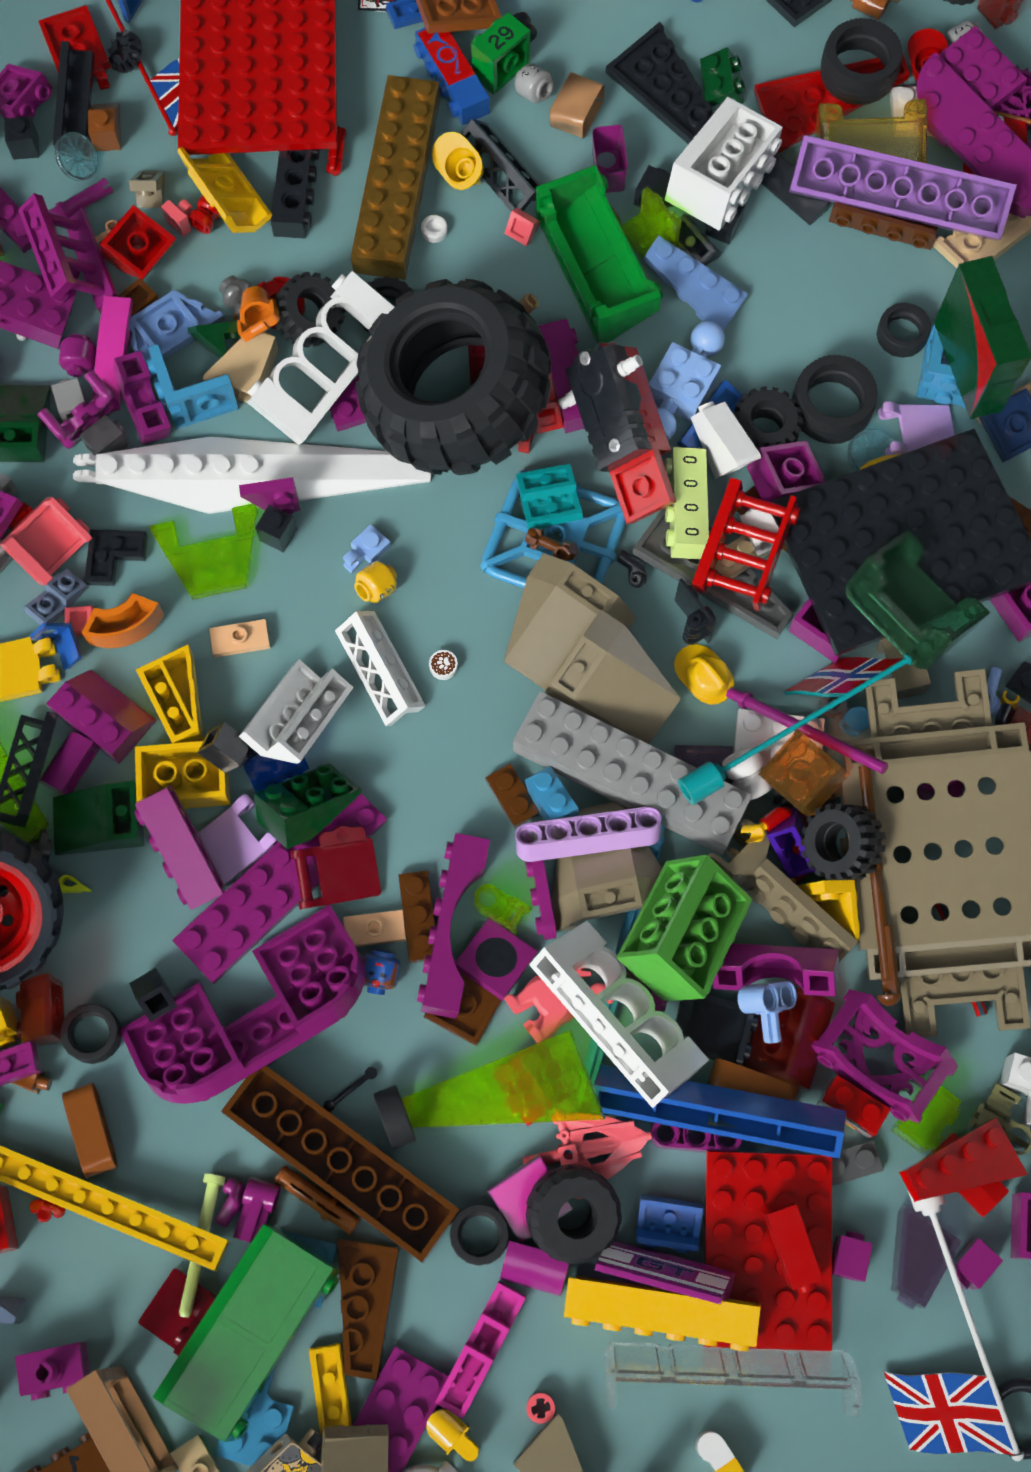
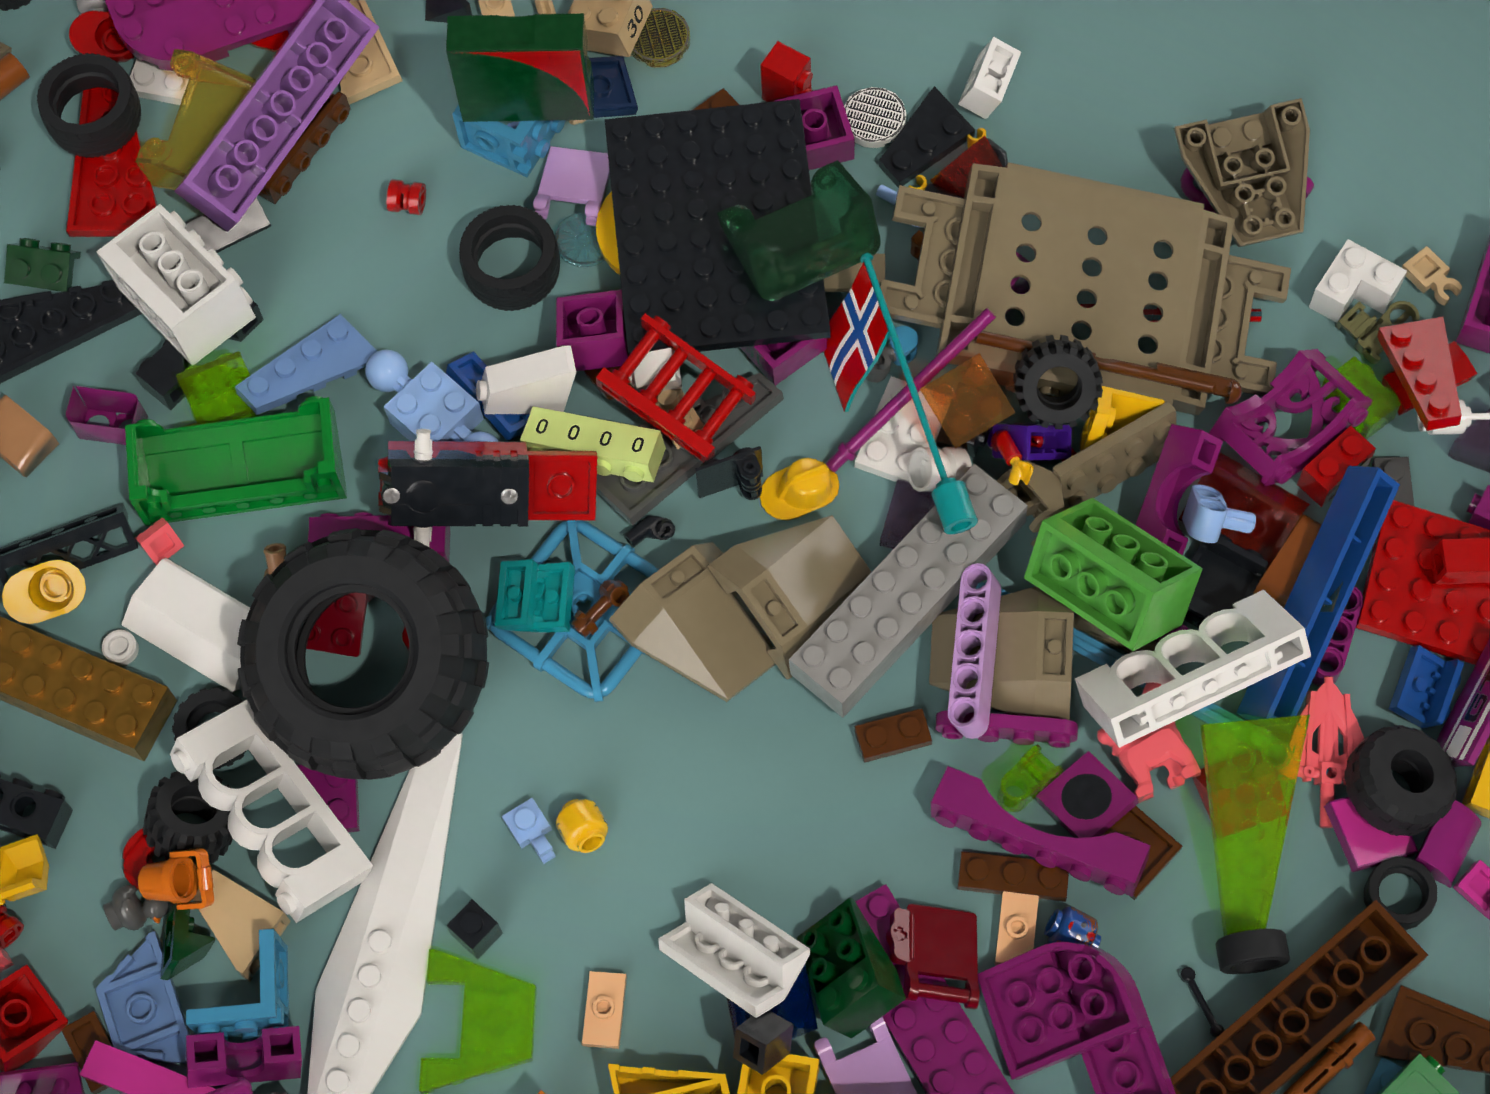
camera: 70 degrees left, 5 degrees down
(277, 493) = (437, 914): magenta wing -> none
(382, 661) = (688, 837): white fence -> none
(443, 664) = (708, 774): tile -> none
(471, 252) = (189, 621): none -> white slope
(550, 796) = (917, 684): dark azure brick -> none
(695, 242) = (255, 351): black slope -> none
(773, 406) = (510, 315): black tyre -> none
(864, 310) = (406, 197): none -> red wheel
(907, 312) = (439, 143): black tyre -> none

